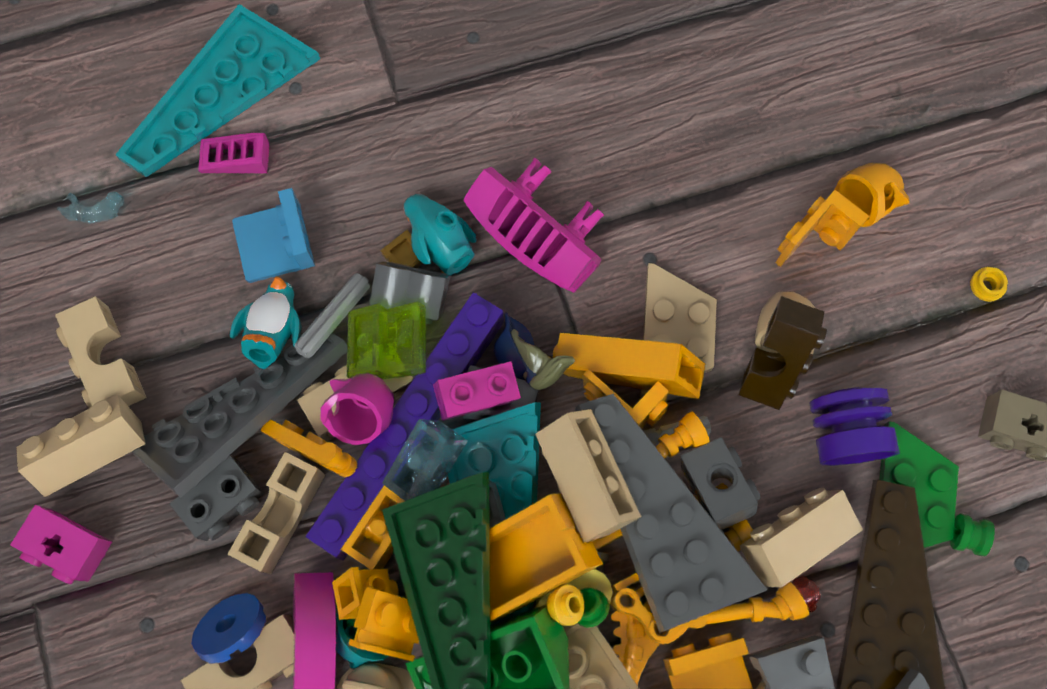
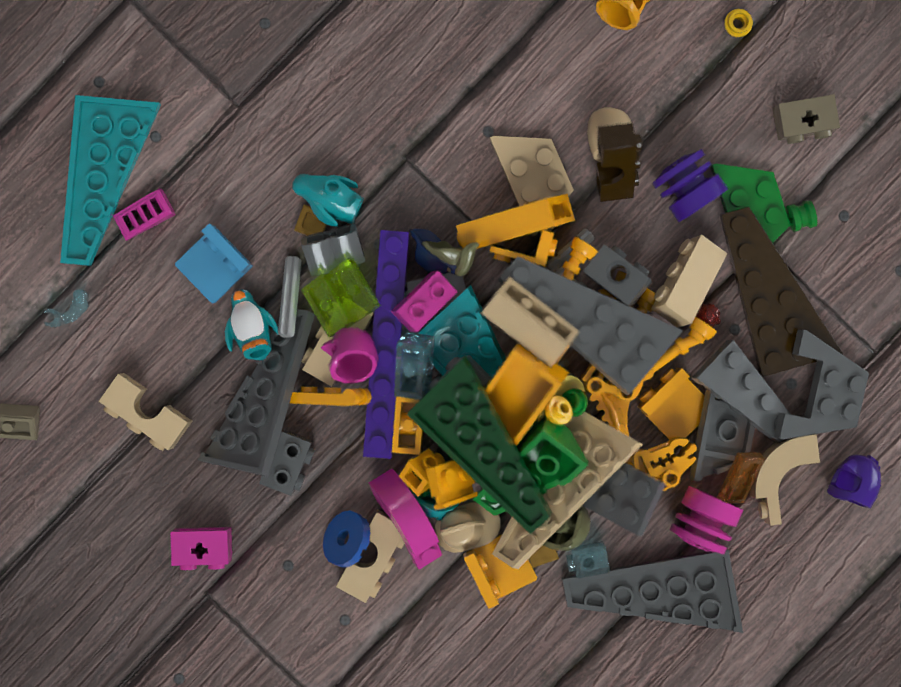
camera: 30 degrees left, 15 degrees up
(80, 445) = (174, 478): tan brick -> none
(267, 535) = (334, 449): tan arch -> none
(529, 231) = (394, 160): dark pink piece -> none
(832, 218) = (610, 39): light orange bracket -> none

